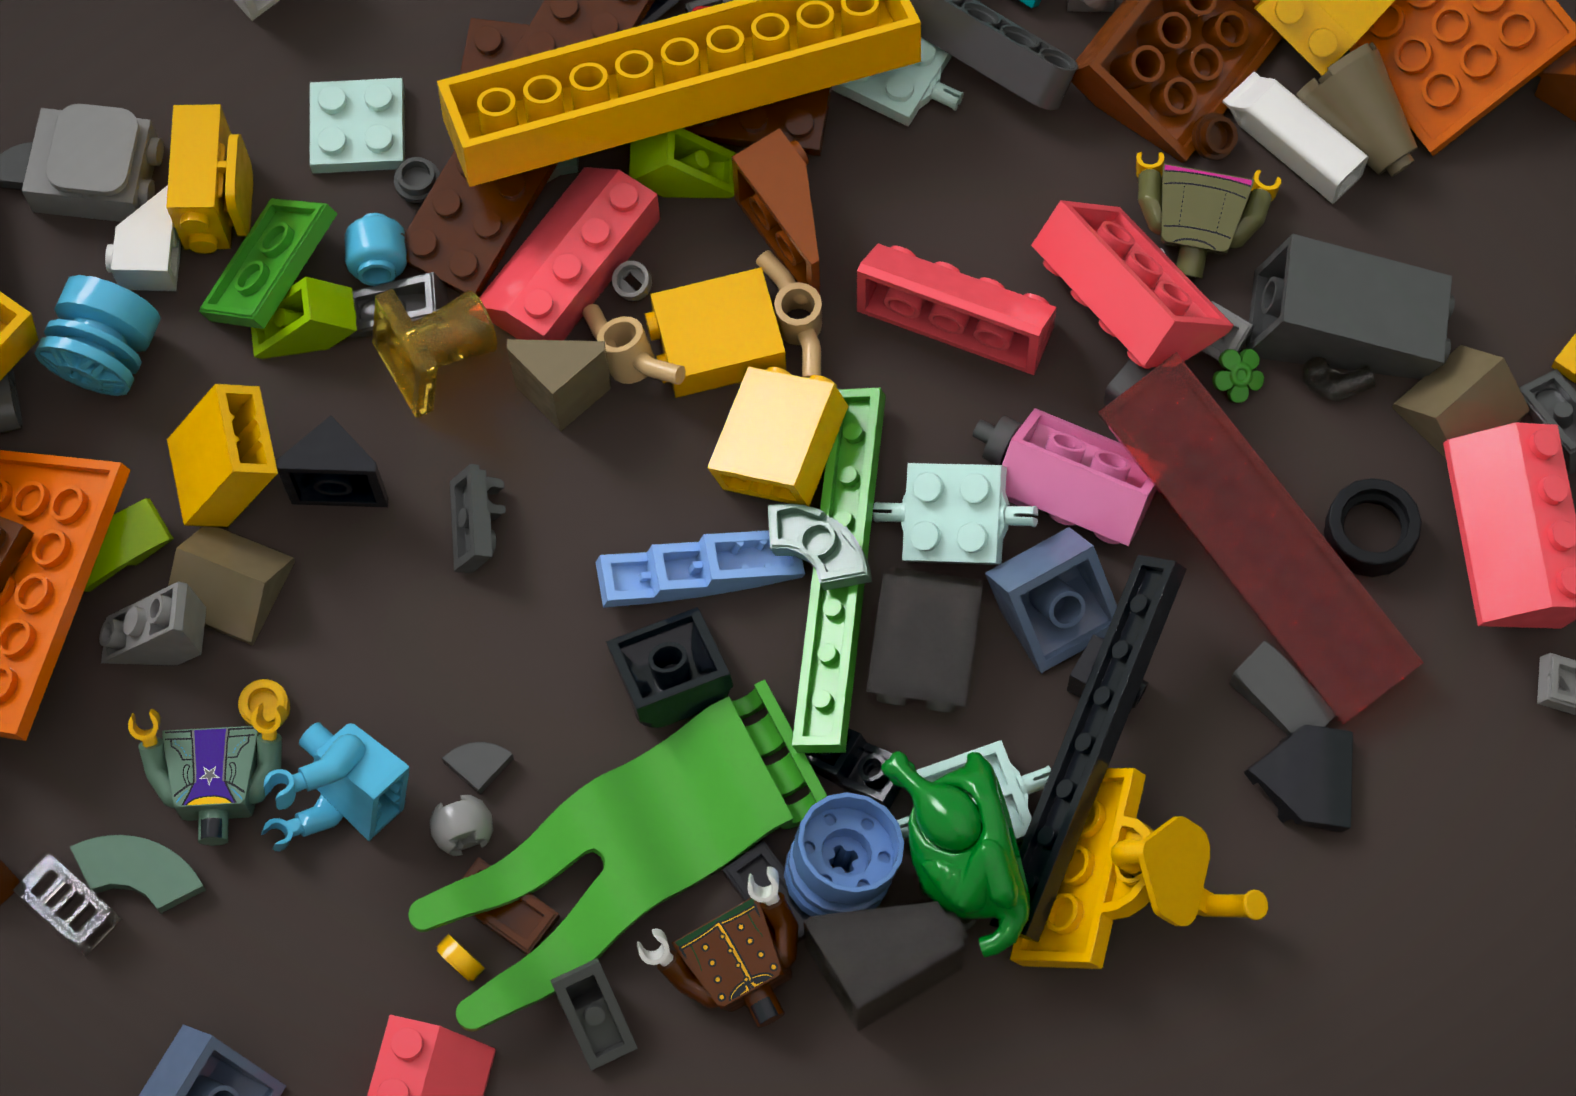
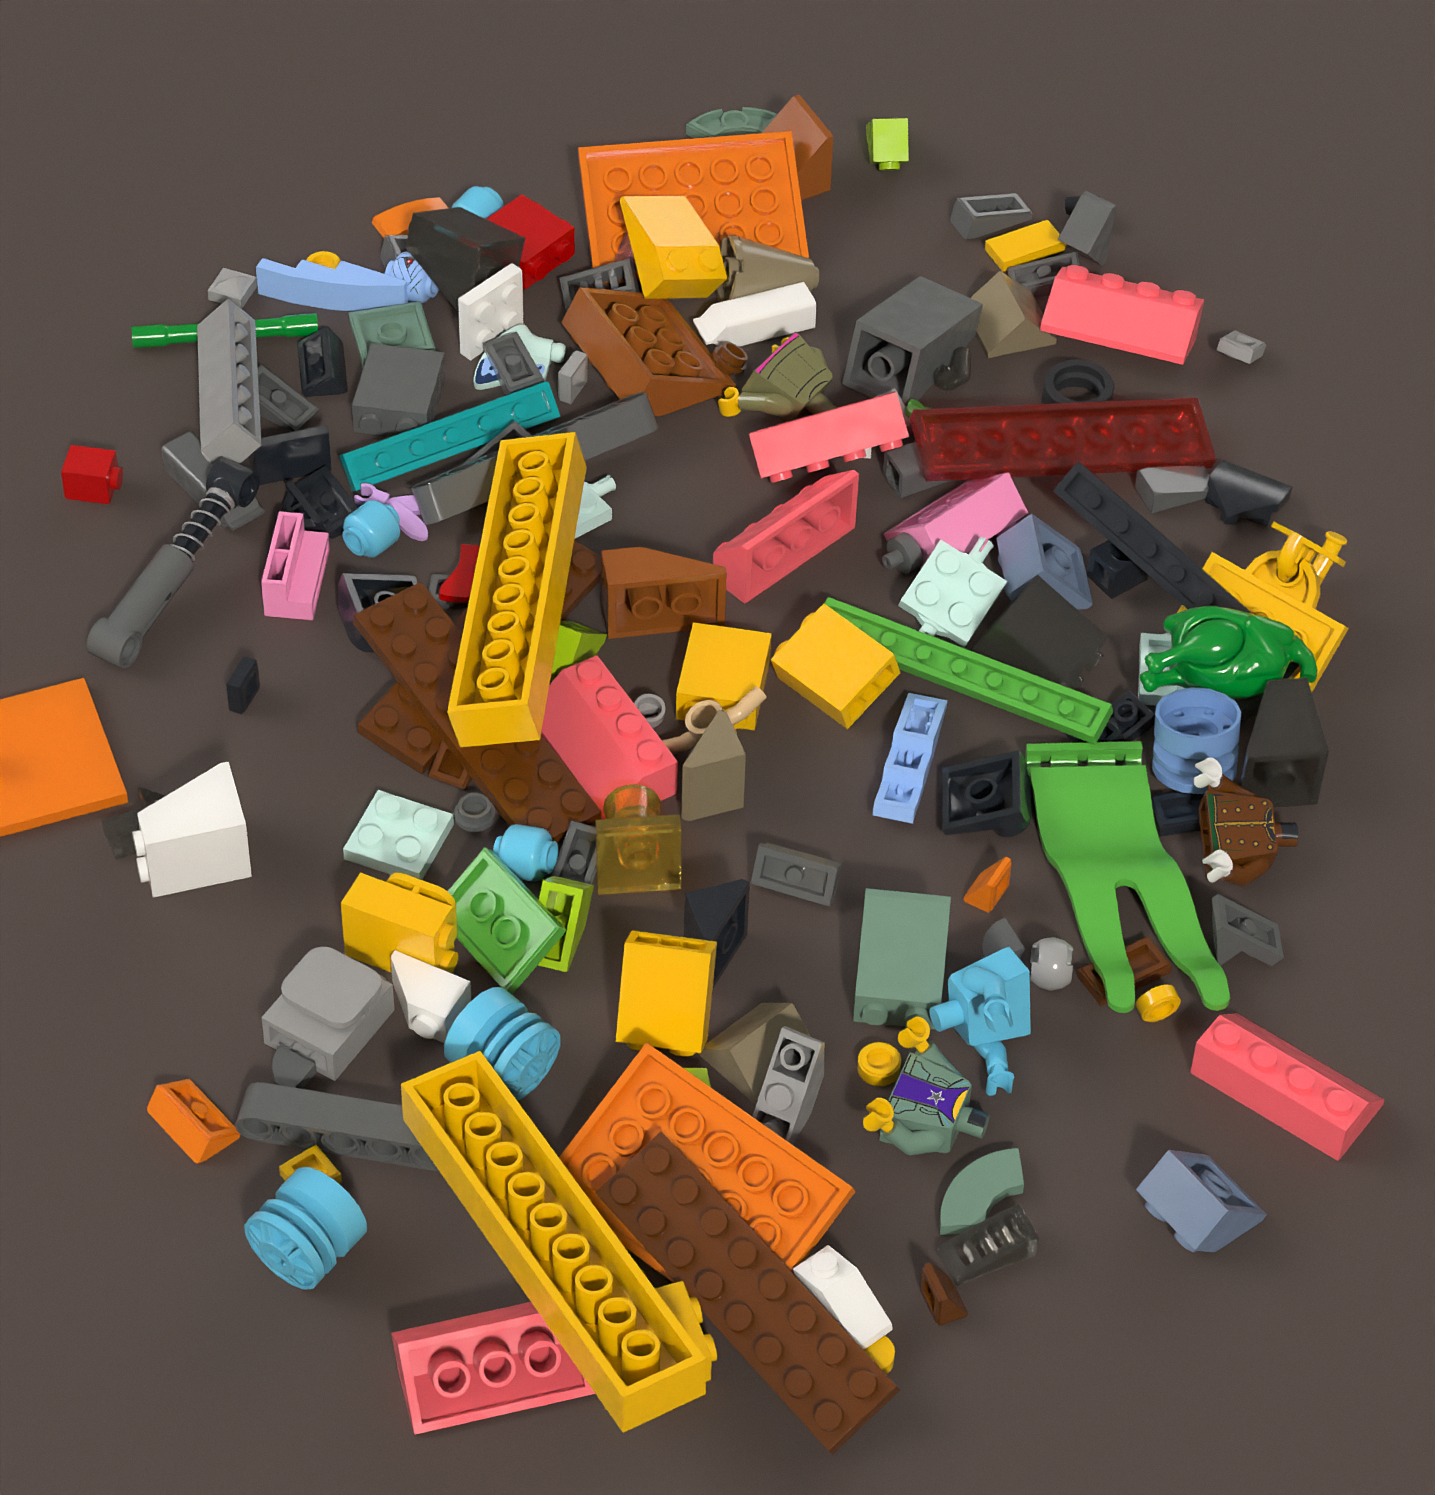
camera: 70 degrees left, 20 degrees down
(382, 670) = (901, 957): none -> sand green slope
(552, 721) = (990, 885): none -> orange slope
(791, 297) = (739, 615): tan piece -> none
(820, 541) = (937, 668): tile -> none

